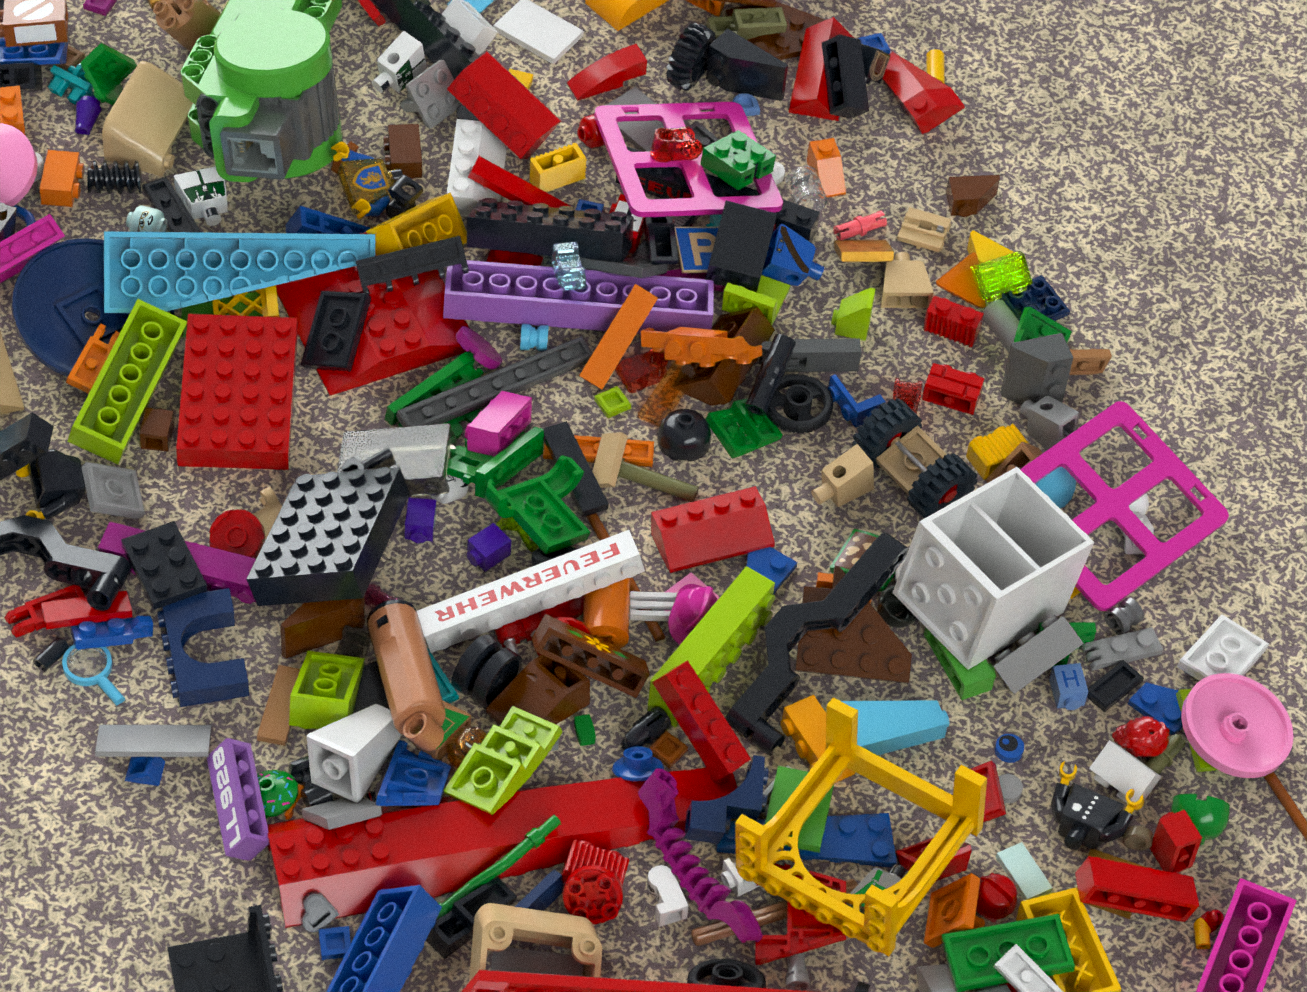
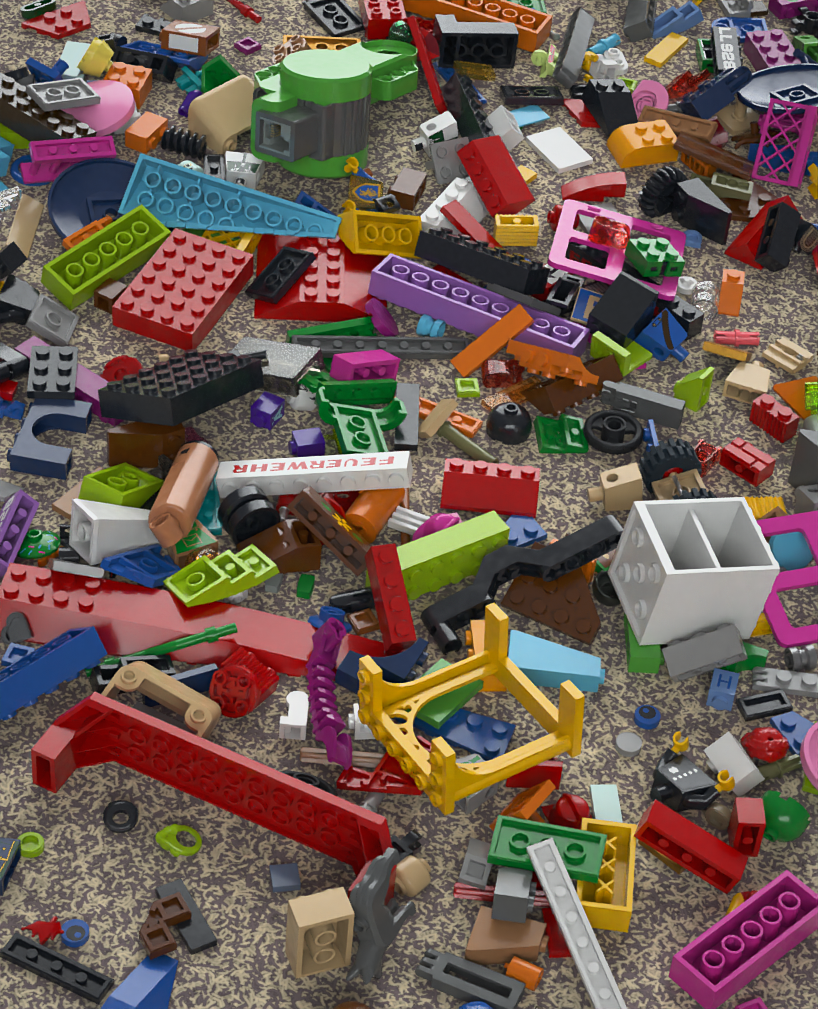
camera: 25 degrees right, 10 degrees down
(411, 262) = (357, 243): black hinge -> none
(568, 266) = (477, 281): clear light blue leg -> none
(770, 374) = (597, 401): black axle -> none
(994, 800) = (607, 739): red tile -> none

